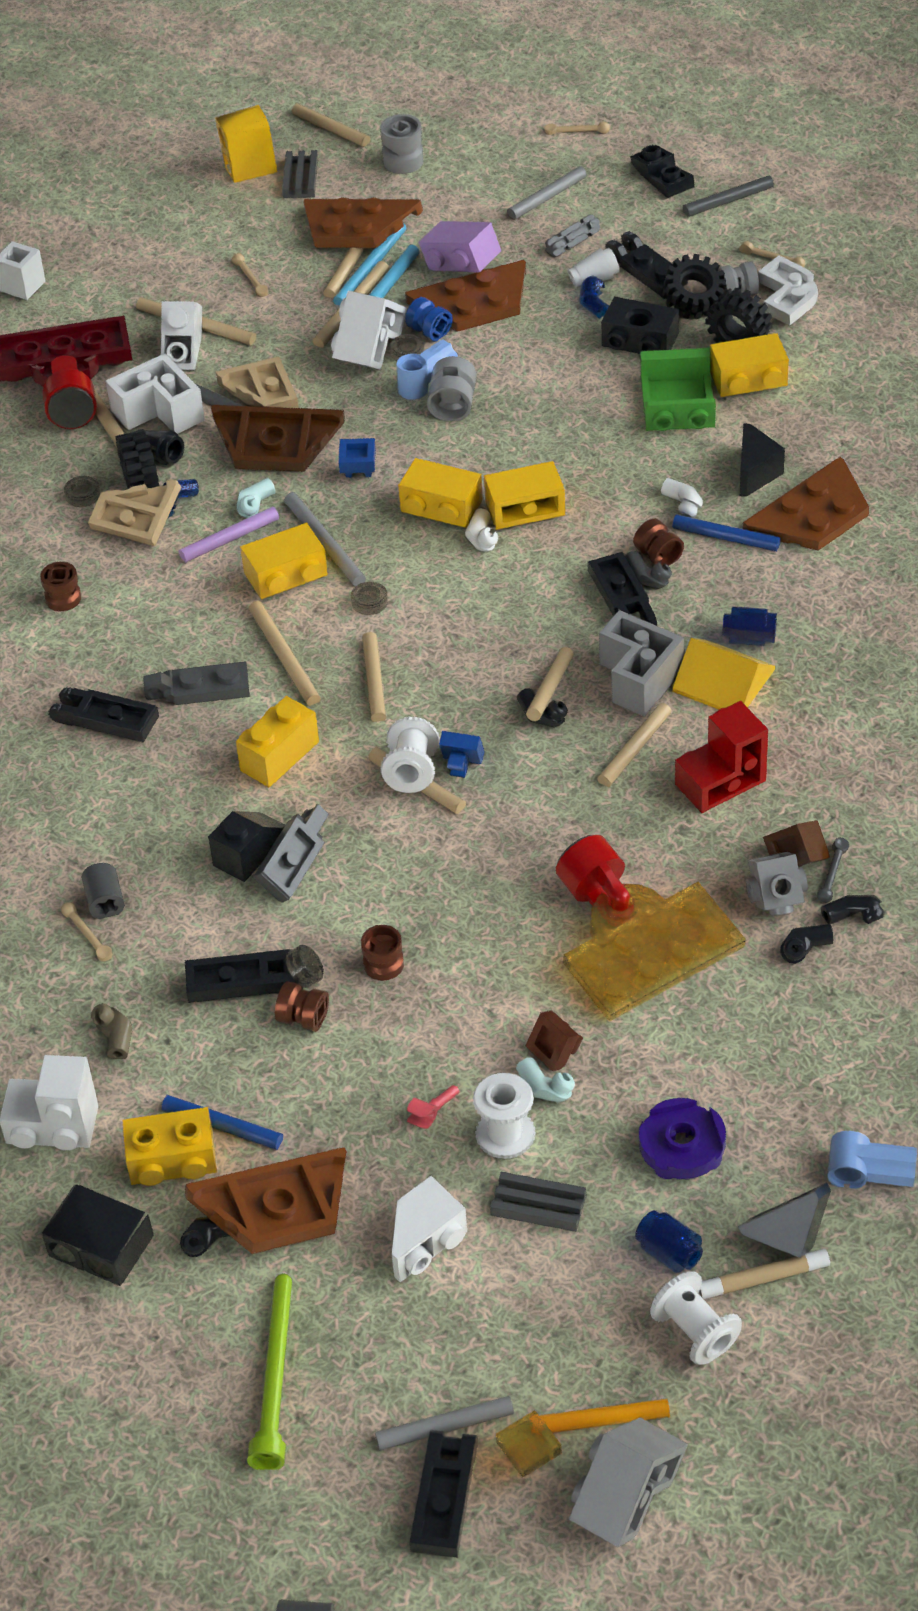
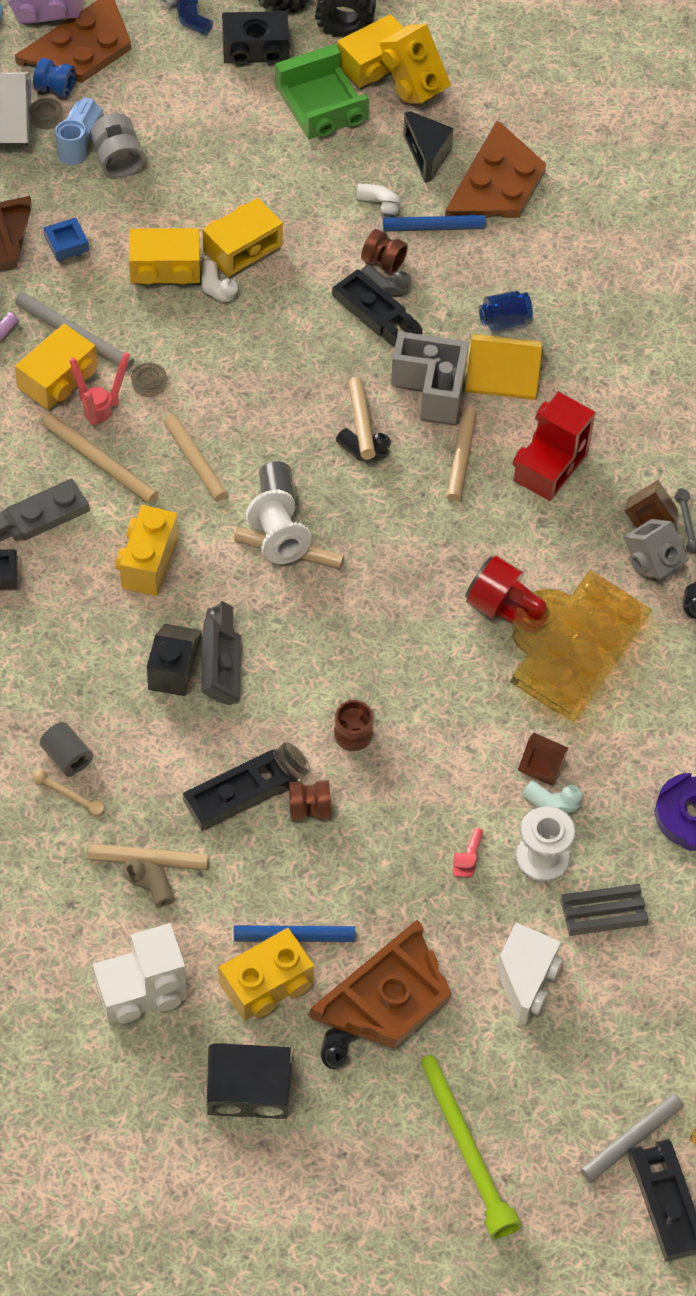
camera: 30 degrees left, 10 degrees up
(131, 1011) = (154, 856): none -> tan bar
(306, 603) = (96, 400): none -> coral plant
(438, 712) = (276, 476): none -> dark grey piece
(460, 751) = (319, 508): blue tile -> none
(776, 382) = (414, 63): none -> yellow brick

